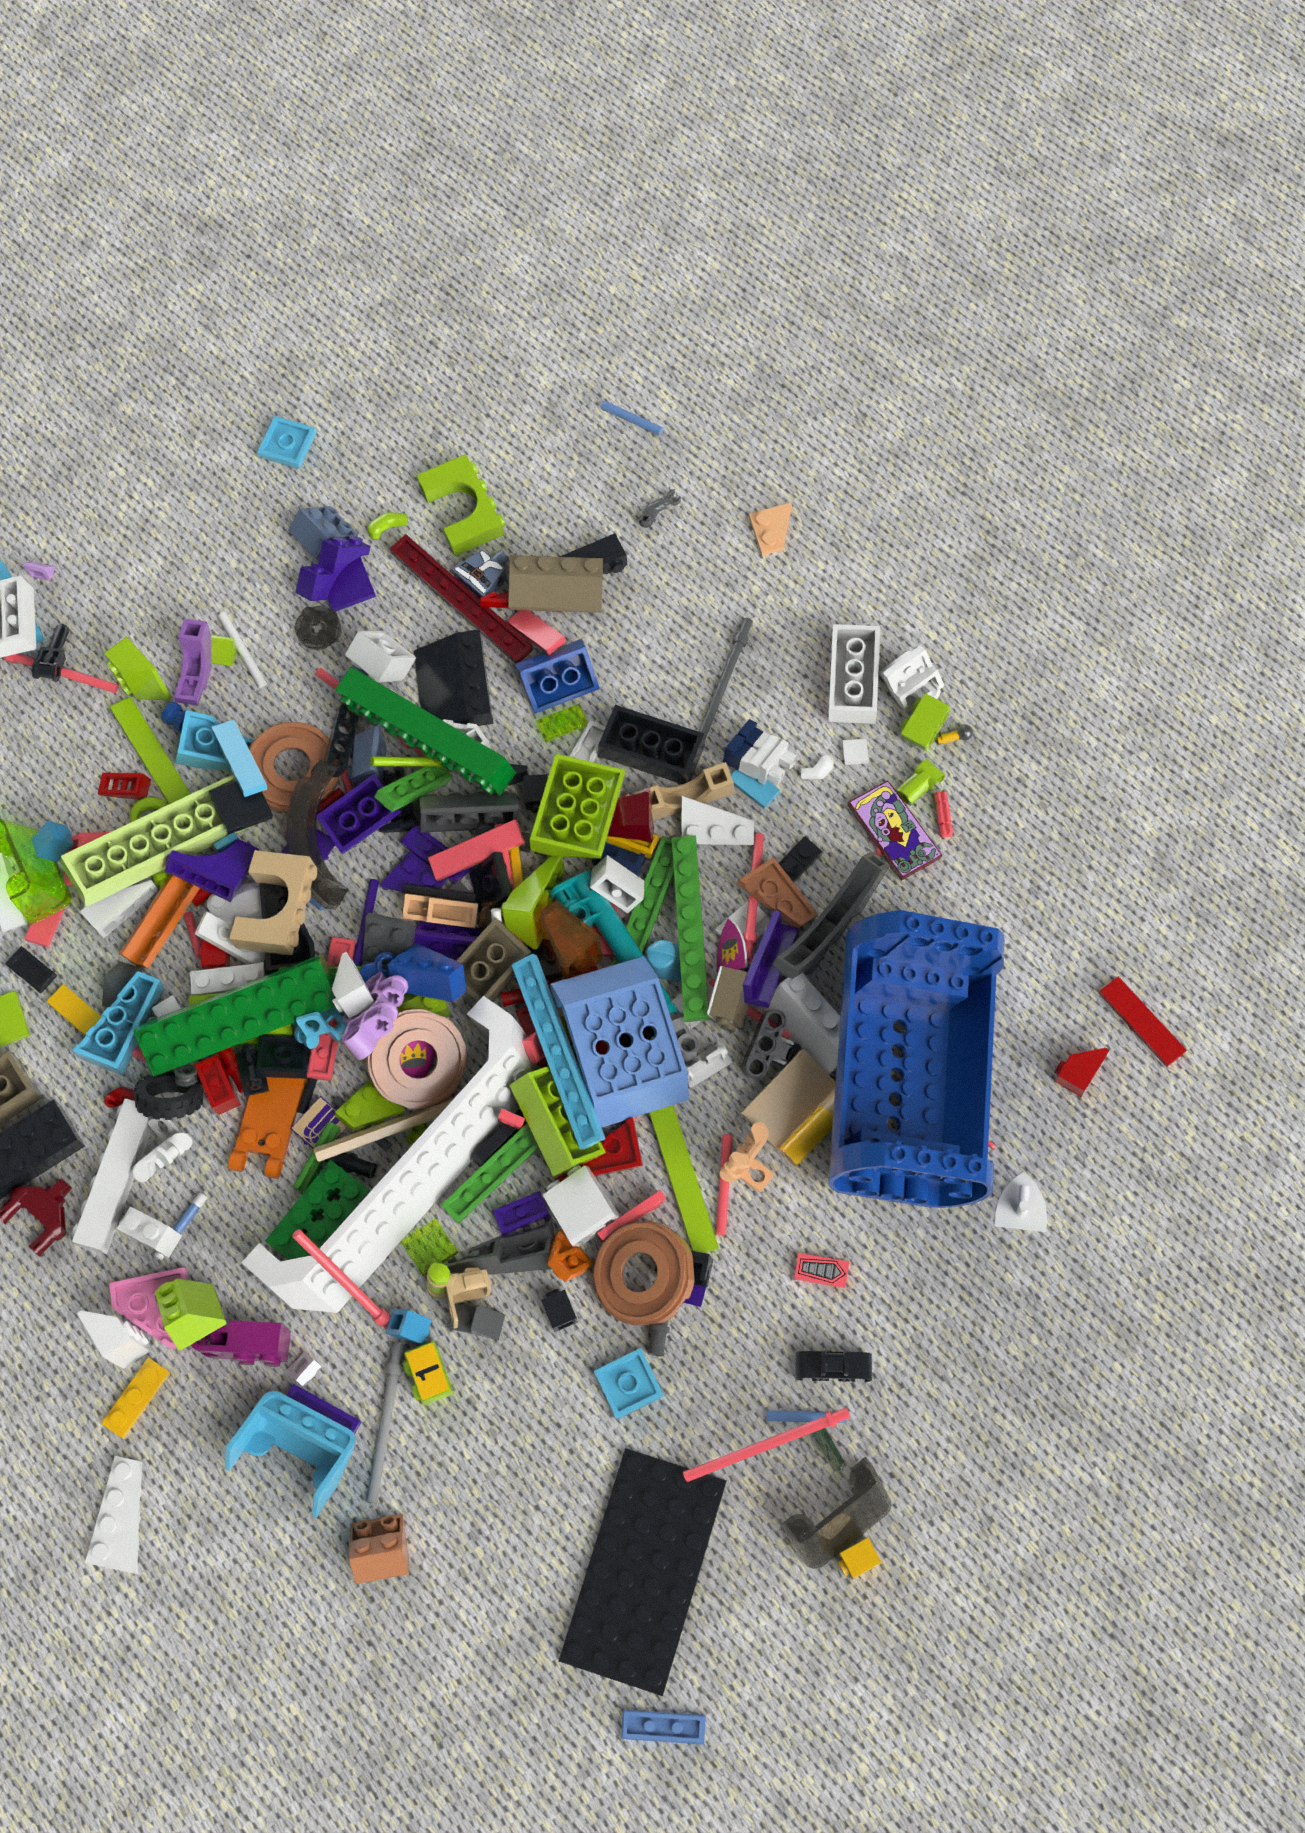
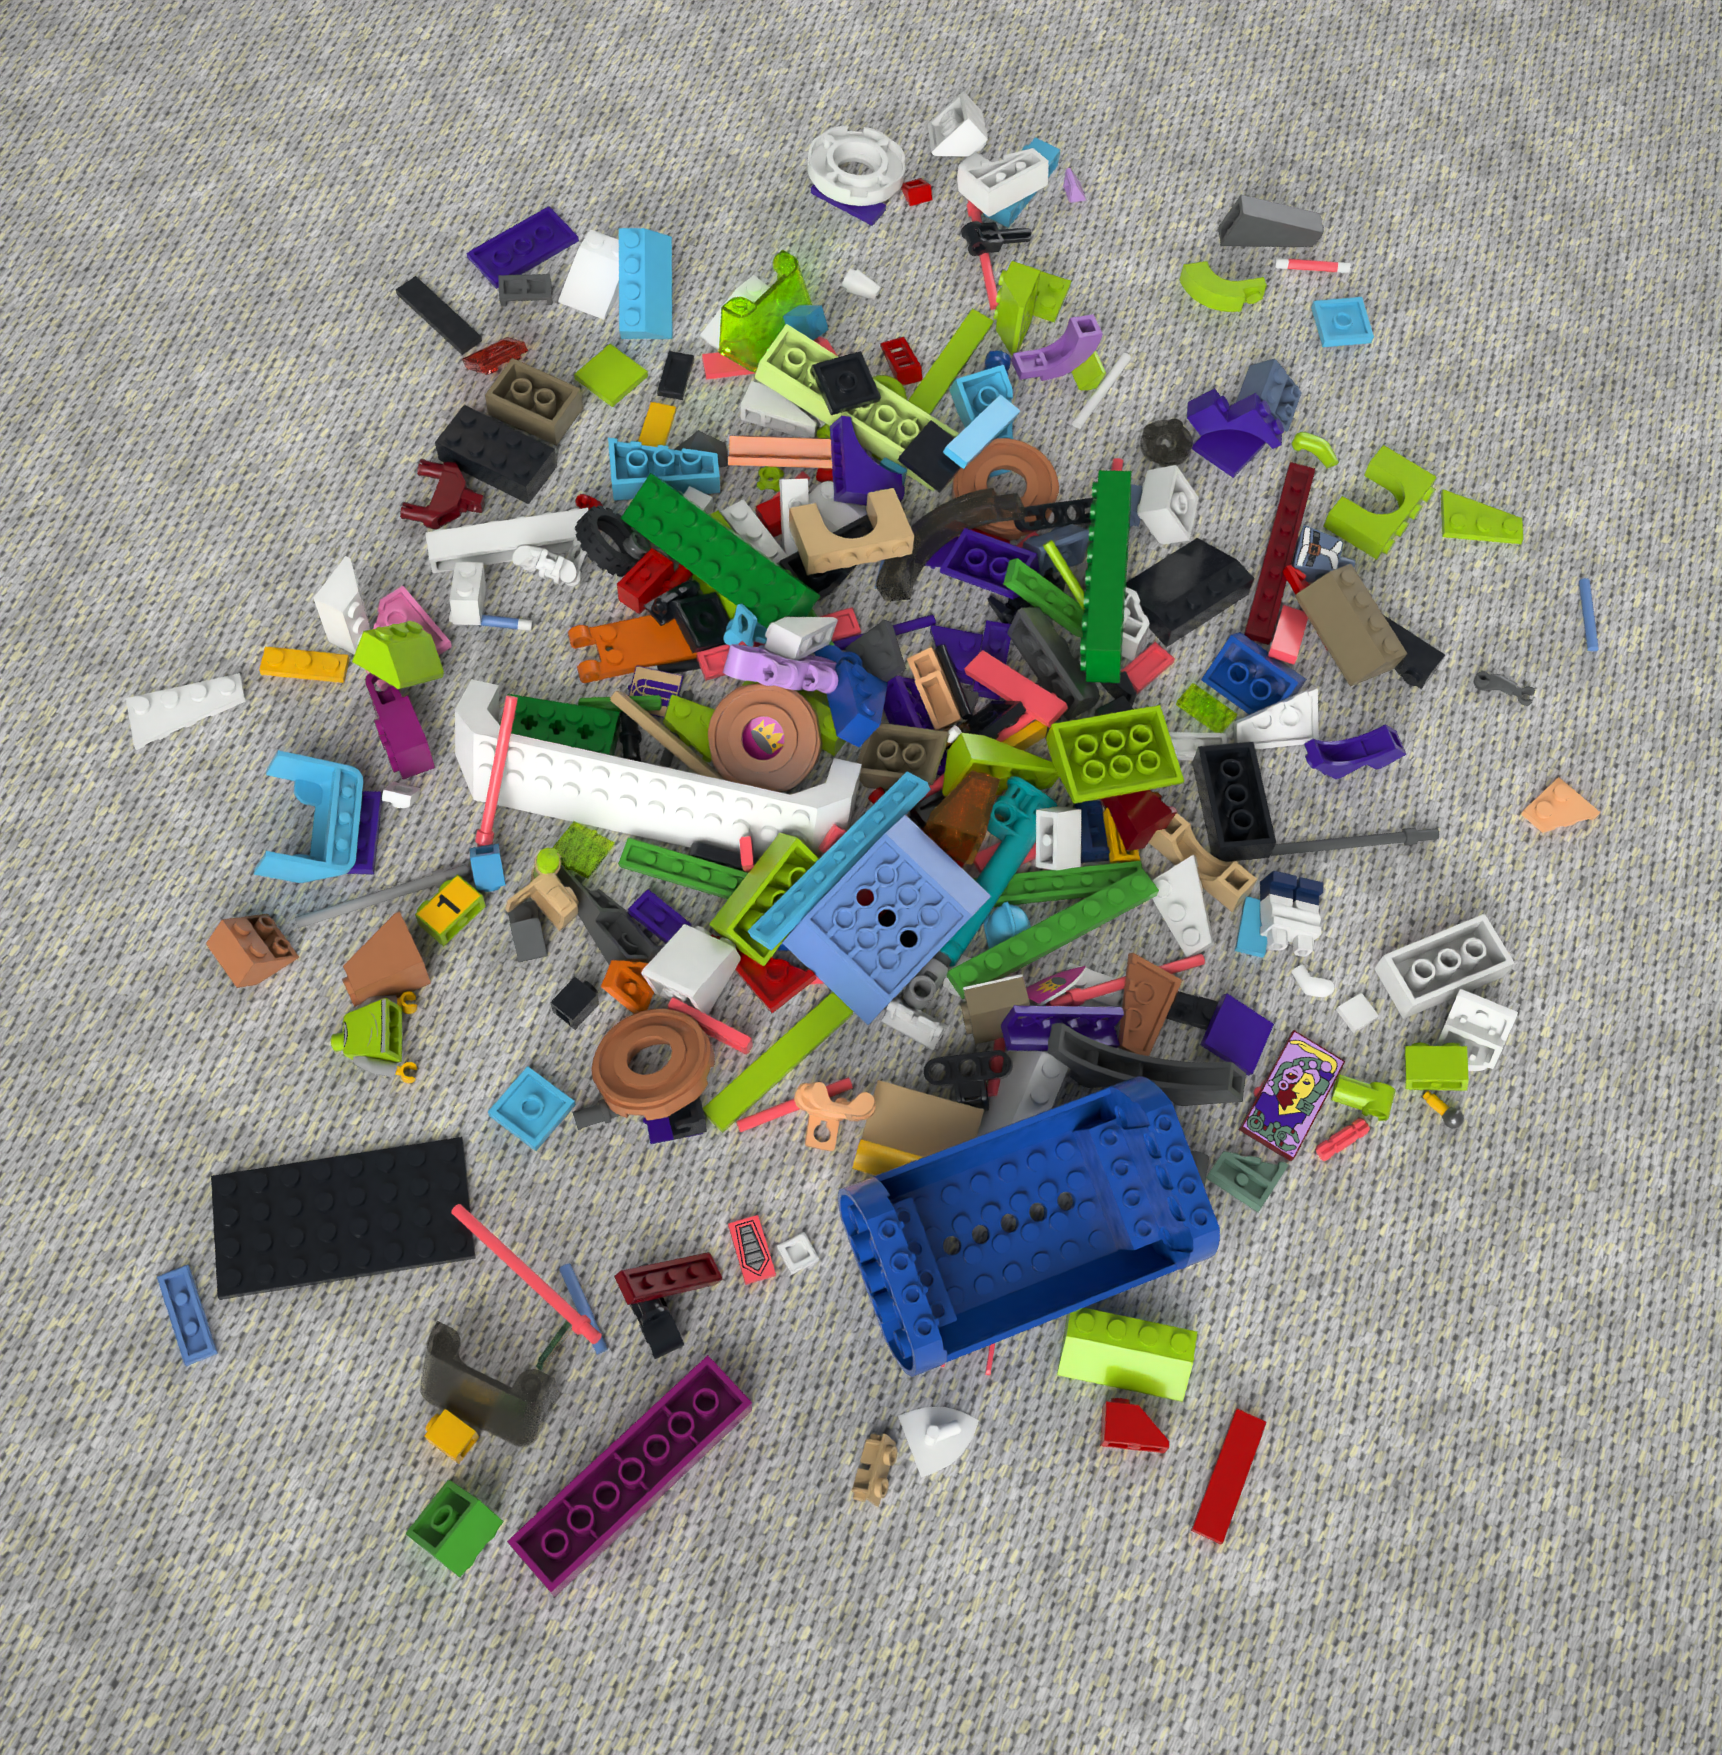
camera: 50 degrees right, 5 degrees down
(32, 781) = (860, 284): none -> white cone
(125, 629) = (1051, 296): none -> lime plate
(140, 838) = (845, 383): none -> black tile
(168, 445) = (1269, 224): none -> dark grey slope
(176, 949) = (770, 472): none -> lime plate
(205, 518) = (1217, 292): none -> lime arch
(221, 434) = (1312, 265): none -> coral bar
(456, 1443) = (385, 964): none -> nougat slope
(503, 742) = (1148, 666): none -> coral tile
(507, 1479) = (375, 1035): none -> lime torso
(513, 447) = (1476, 521): none -> lime wing
(606, 677) = (1283, 723): none -> white wing
(658, 639) = (1342, 757): none -> dark purple arch
(823, 1339) = (668, 1278): none -> dark red tile
(831, 842) = (1237, 1034): none -> dark purple tile
(840, 1238) = (797, 1253): none -> white tile
(928, 1586) = (454, 1528): none -> bright green slope
(940, 893) = (1246, 1177): none -> sand green wing
(953, 1437) = (630, 1476): none -> magenta brick
(1019, 1253) = (872, 1484): none -> tan hinge
(1029, 1043) = (1127, 1353): none -> lime slope

